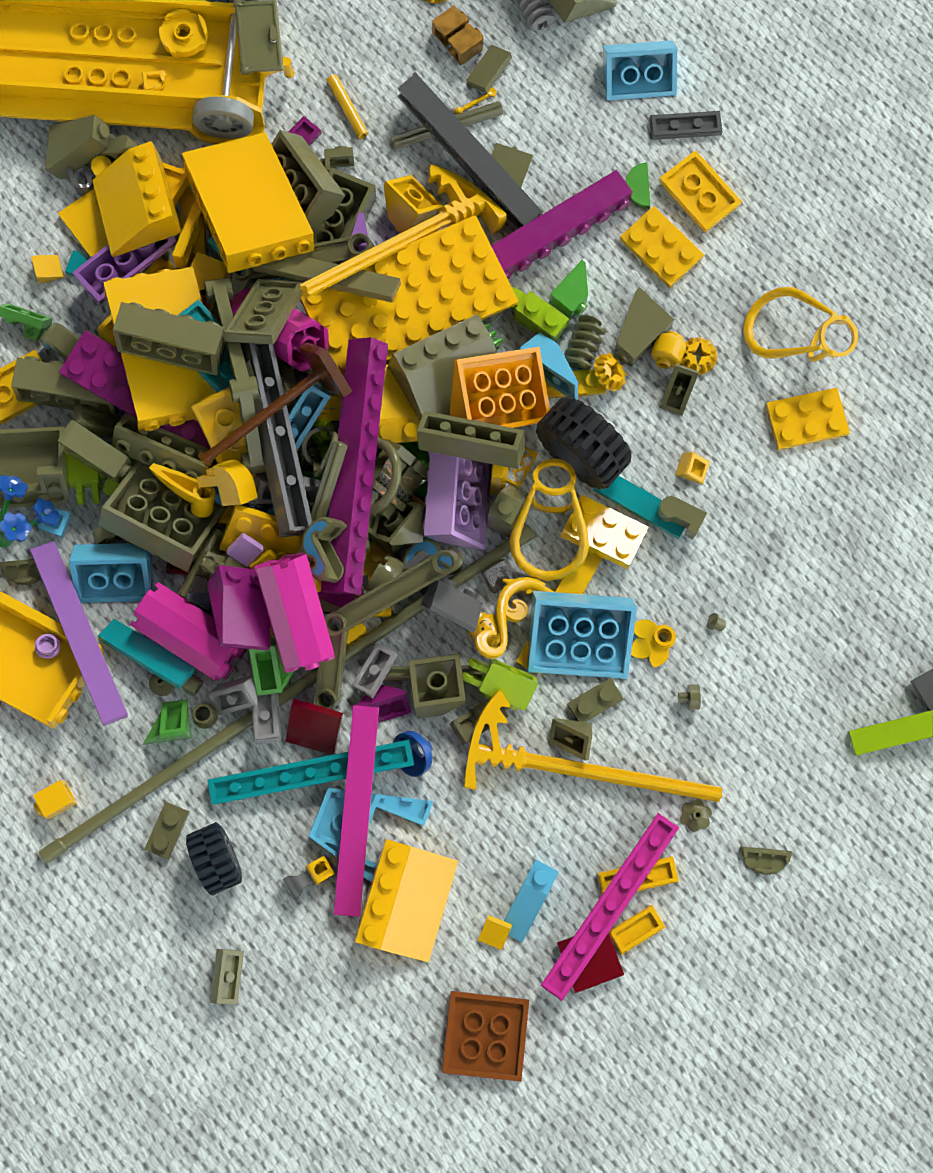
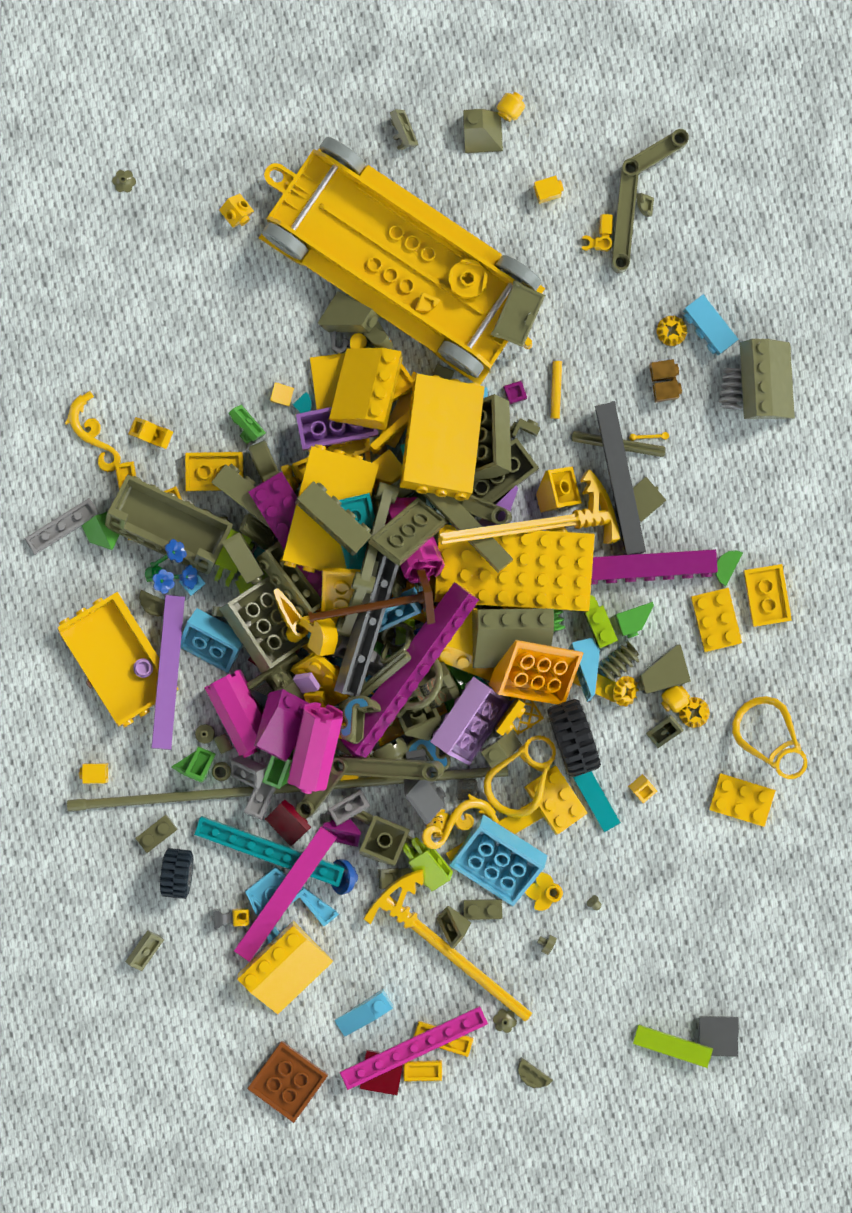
camera: 35 degrees right, 10 degrees up
(146, 653) = (204, 710): teal tile -> none
(471, 439) = (495, 701): olive brick -> none
(489, 68) = (673, 418): olive tile -> none
(494, 932) = (330, 1020): yellow tile -> none
(640, 70) = (779, 480): medium azure slope -> none
(682, 514) = (617, 823): olive leg -> none
(685, 125) = (788, 539): dark grey tile -> none

